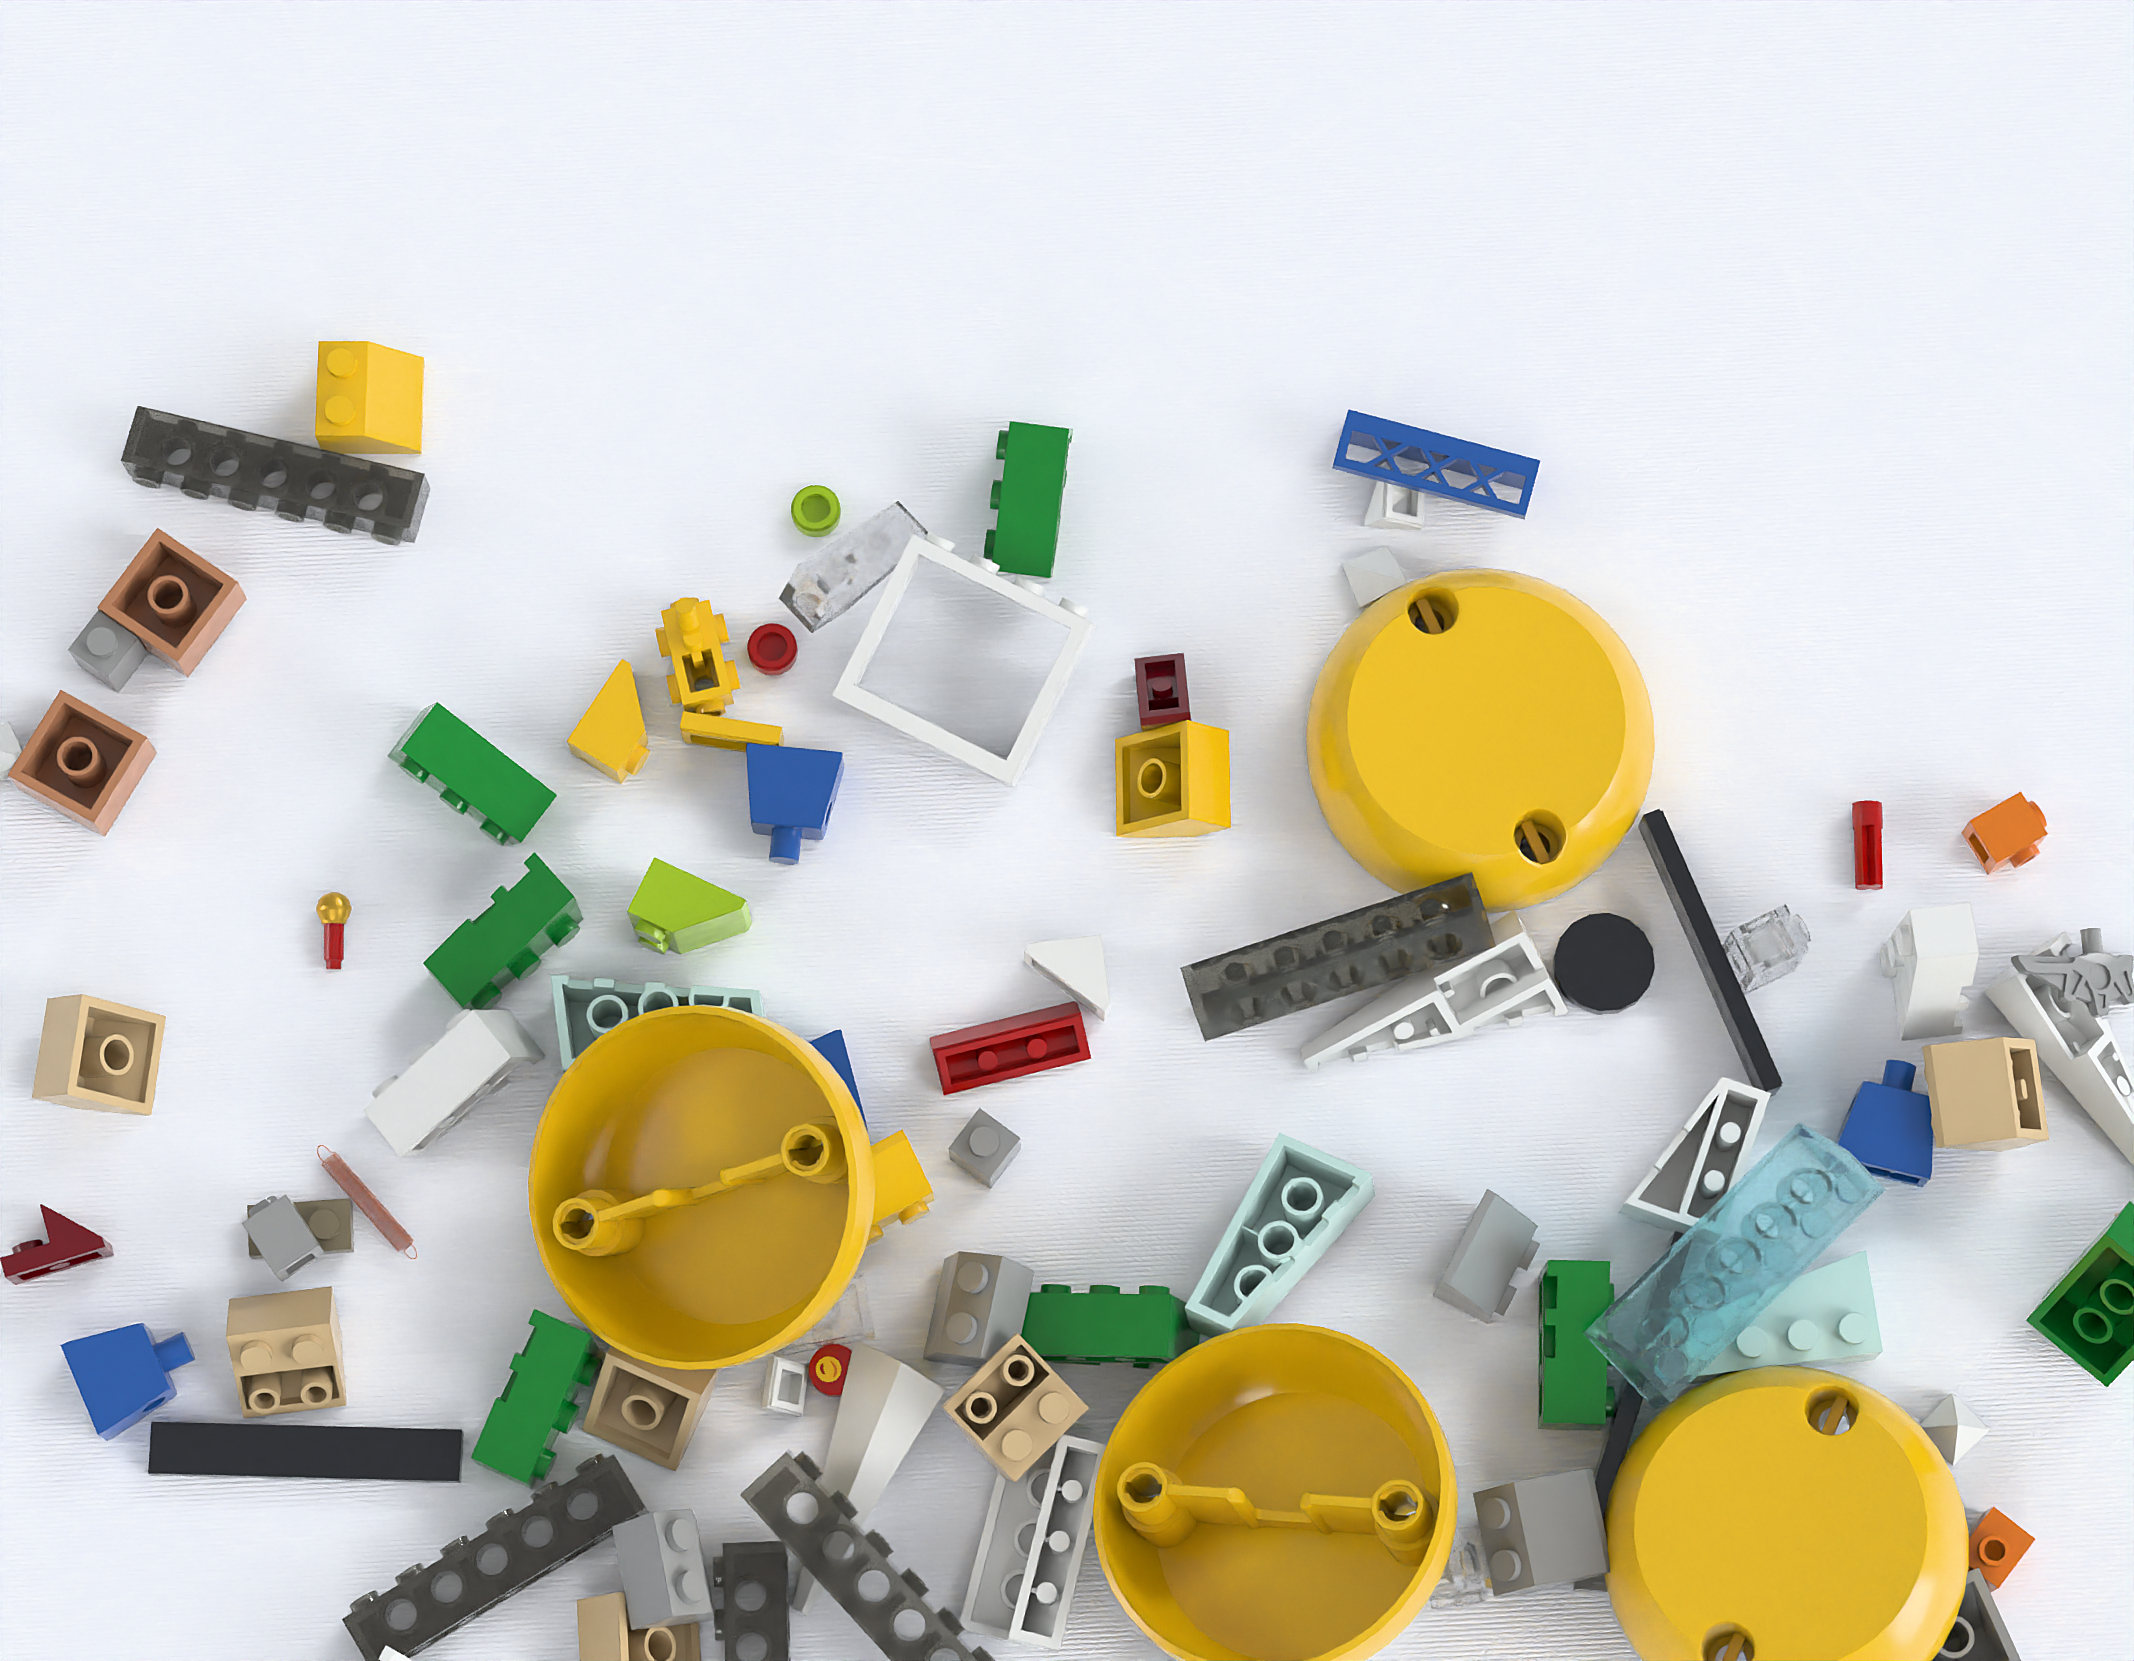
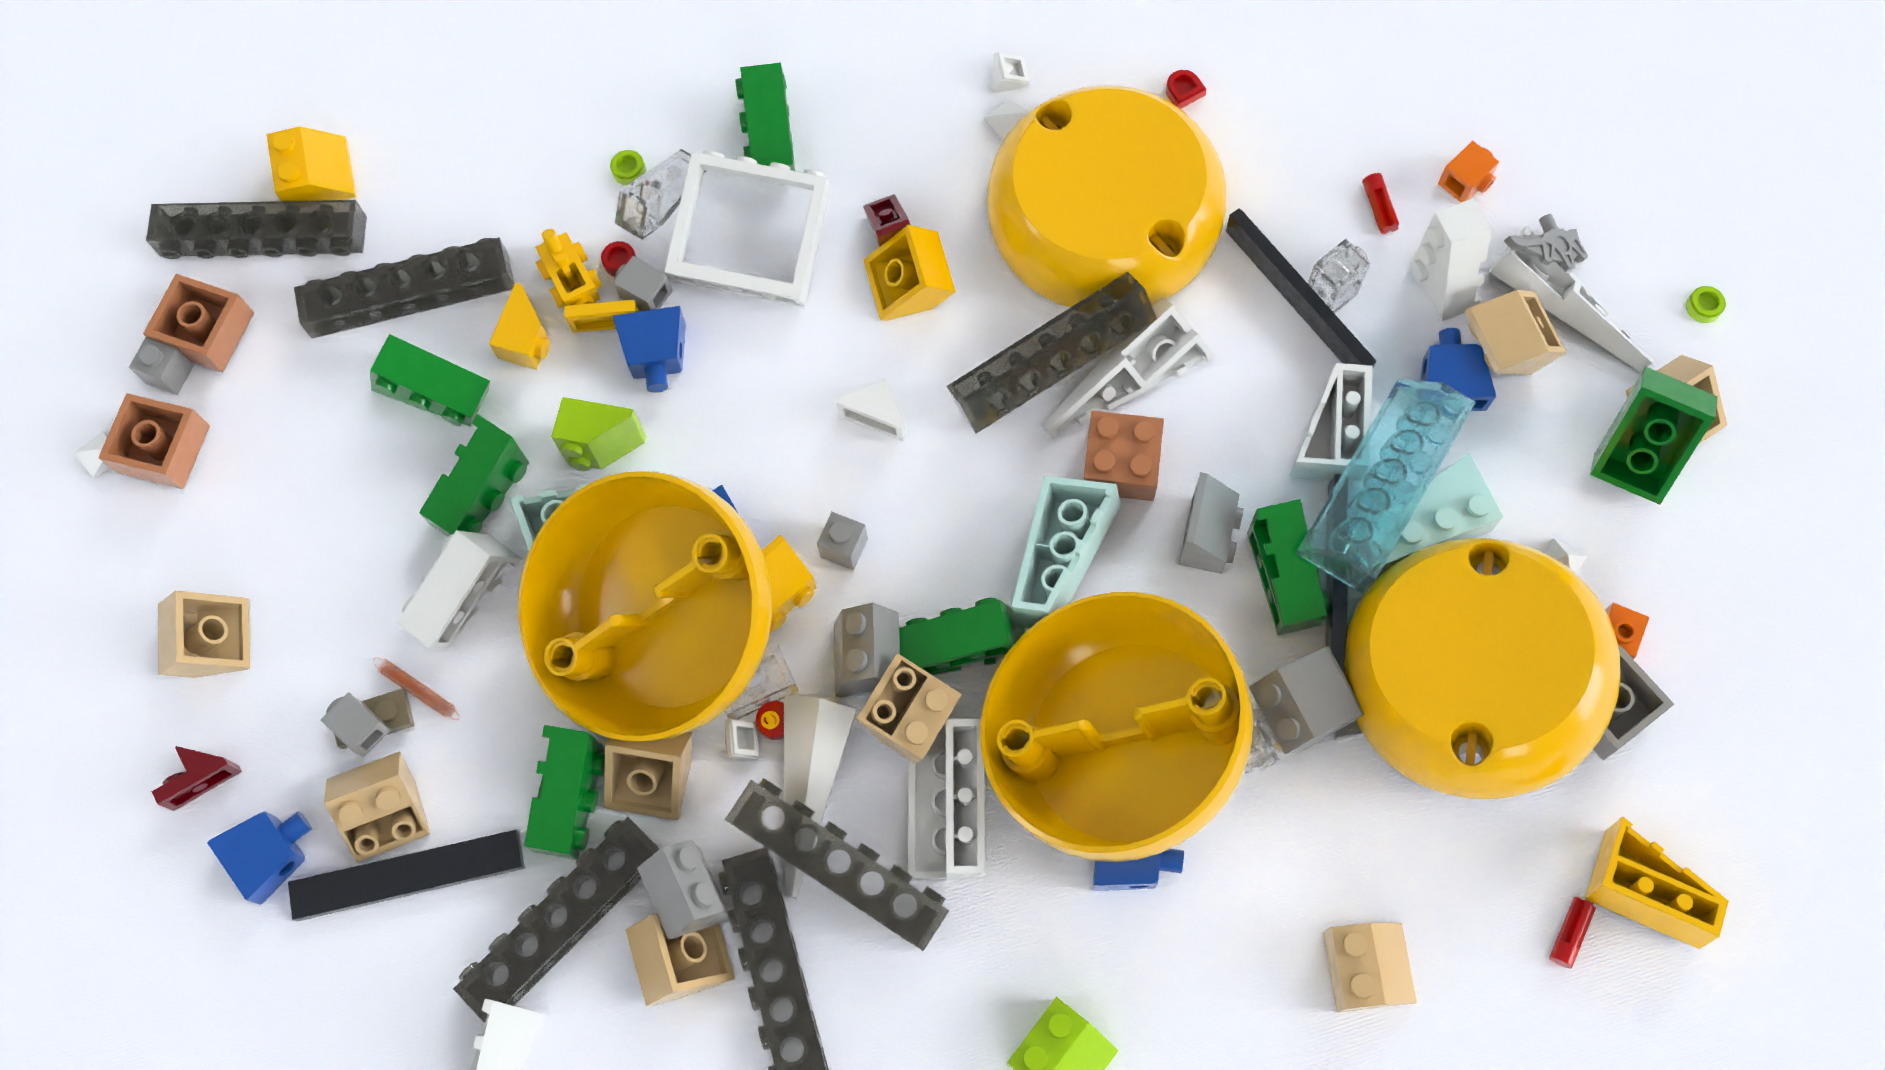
camera: 10 degrees left, 5 degrees down
(333, 912) = (353, 499): piece -> none
(489, 634) = (422, 293): none -> clear smoke brick
(796, 702) = (643, 284): none -> light grey brick
(1010, 1047) = (843, 473): red slope -> none
(1397, 1125) = (1124, 453): none -> nougat brick
(1439, 453) = (1028, 37): blue fence -> none
(1603, 963) = (1230, 319): black tile -> none
(1641, 593) = (1184, 88): none -> red tile

